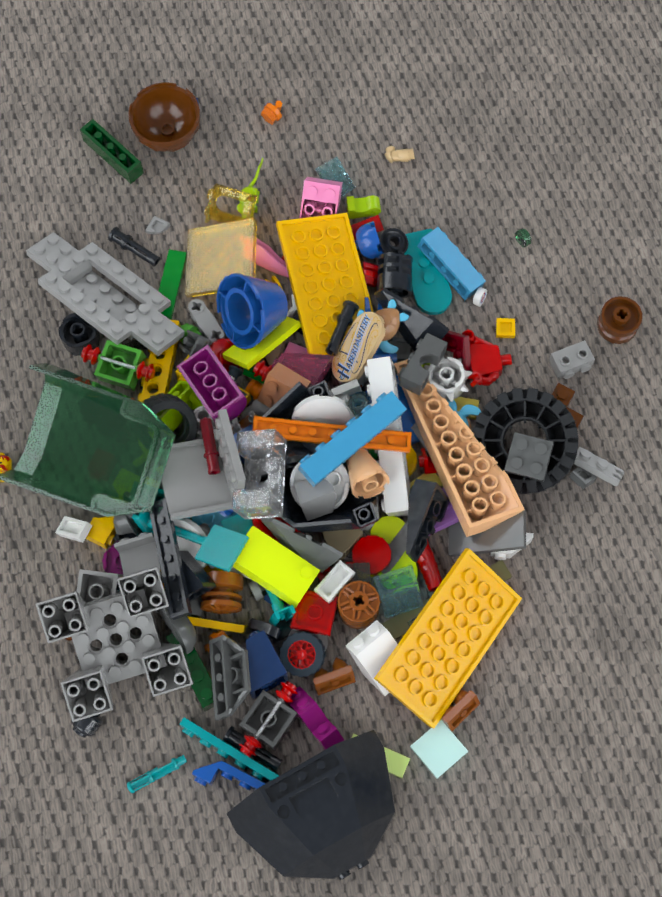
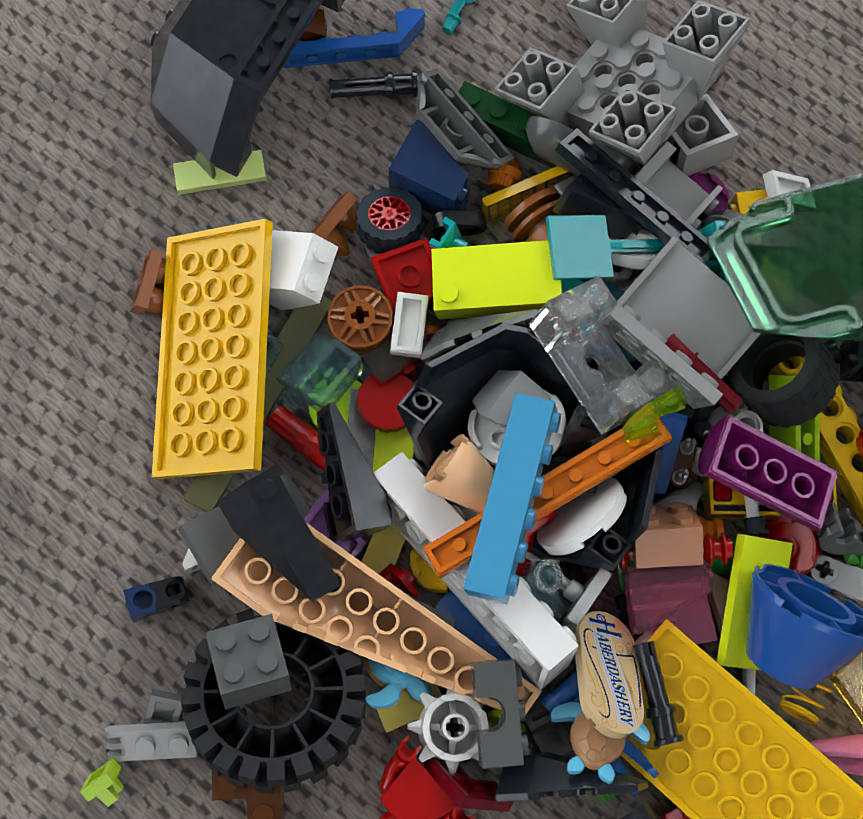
camera: 140 degrees right, 5 degrees up
(226, 750) = (378, 64): teal plate -> none
(242, 426) = (645, 421): none -> clear neon green slope
(268, 719) = (375, 117): dark grey brick -> none
(315, 719) = (328, 157): magenta arch -> none
(439, 749) = (147, 223): light aqua tile -> none
(476, 510) = (273, 526): none -> black wedge
(556, 533) = (155, 597): none -> leg
(633, 461) = (103, 783): none -> lime tile

